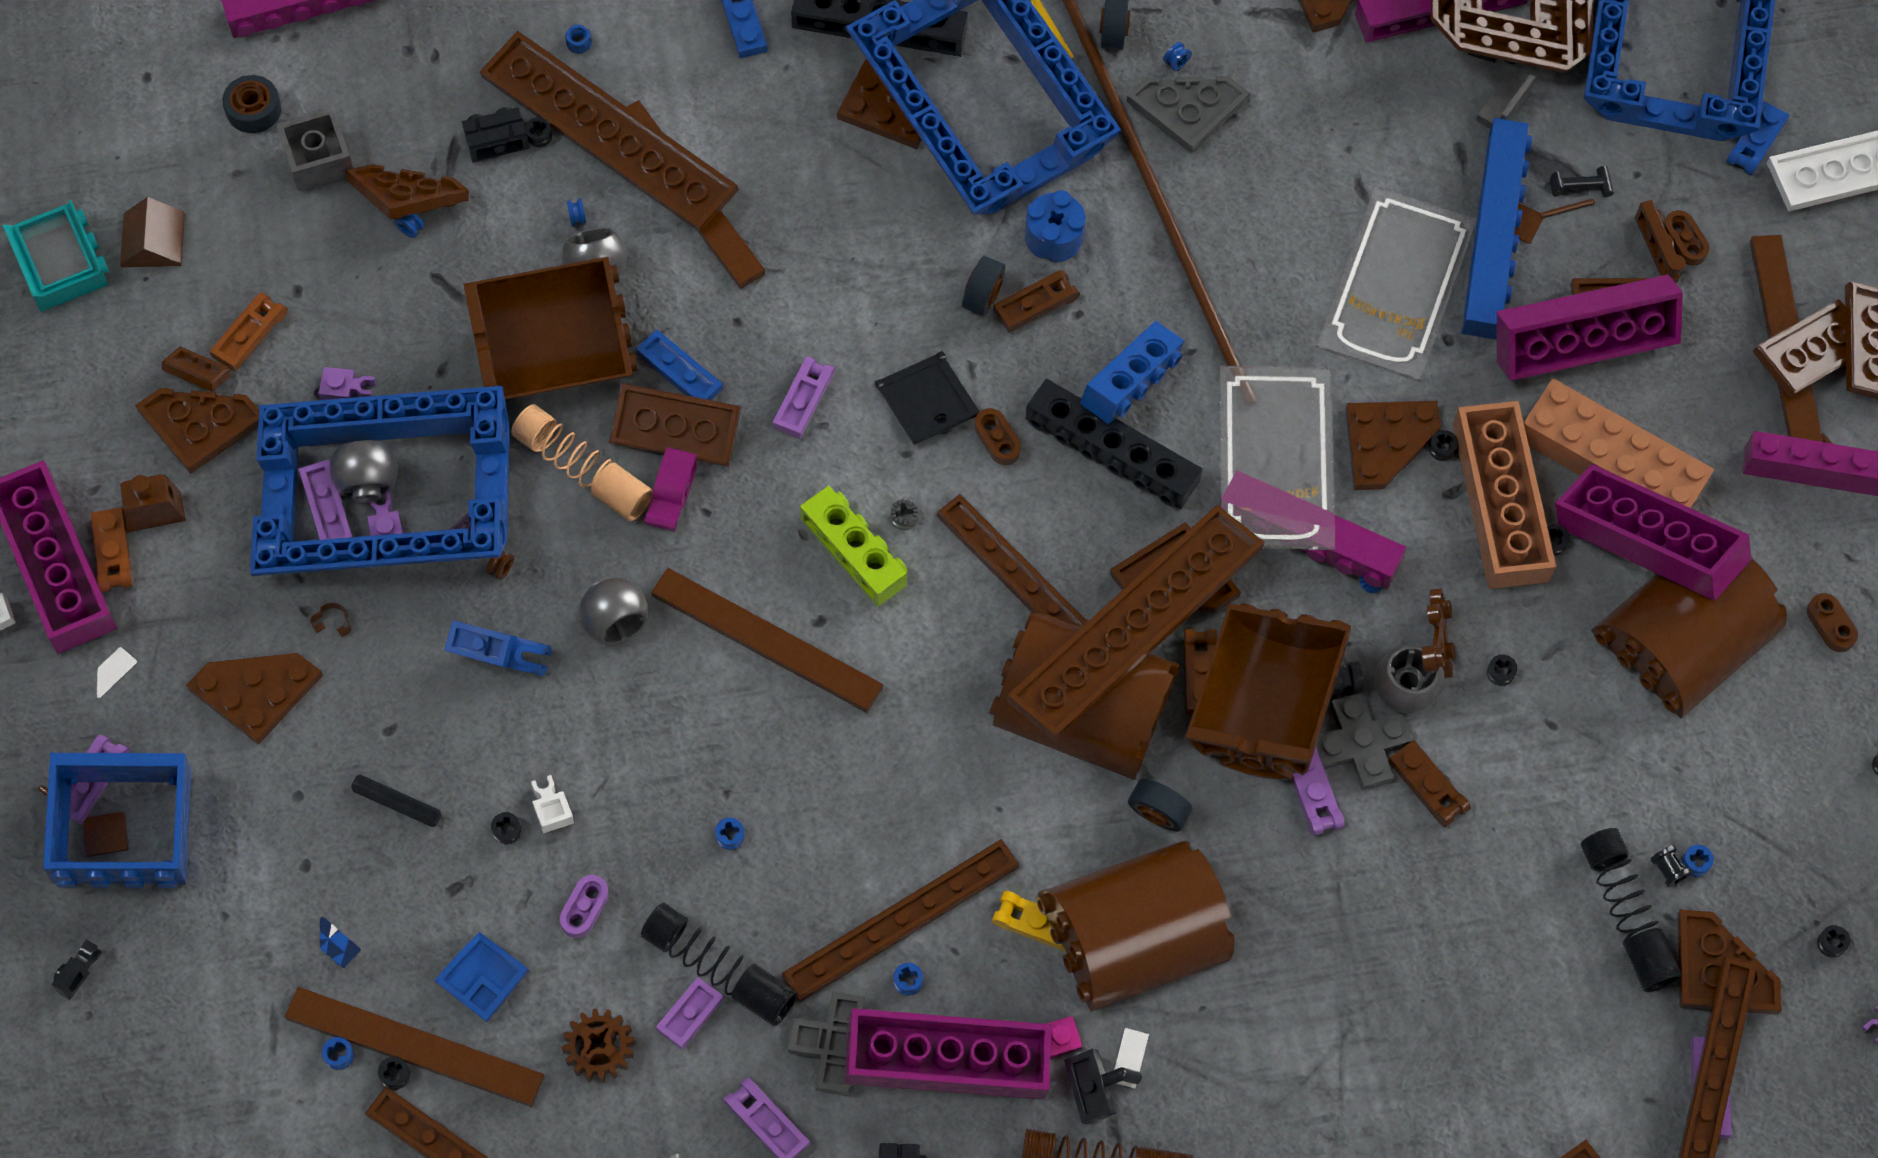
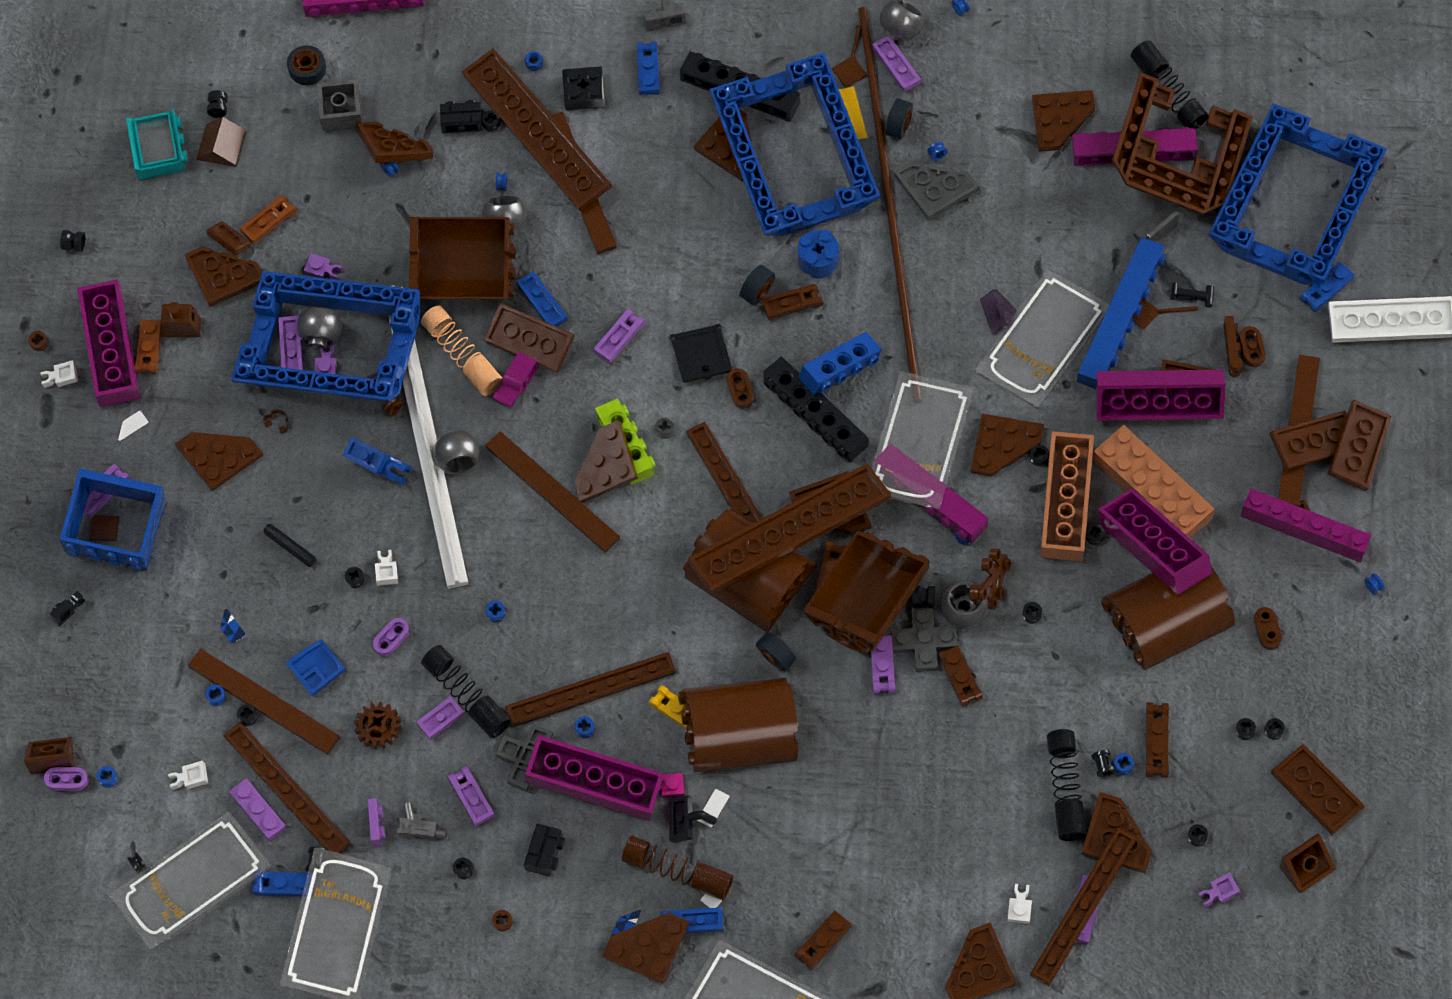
camera: 20 degrees right, 0 degrees up
(133, 180) = (217, 101): none -> black wheel
(584, 651) = (433, 476): none -> white piece
(657, 77) = (580, 98): none -> black brick
(837, 583) = (606, 464): none -> reddish brown plate
(1324, 257) = (997, 311): none -> clear purple slope
(1617, 1108) = (1019, 908): none -> white plate
(1732, 815) = (1157, 740): none -> reddish brown plate
(1839, 772) = (1245, 736): none -> black bush

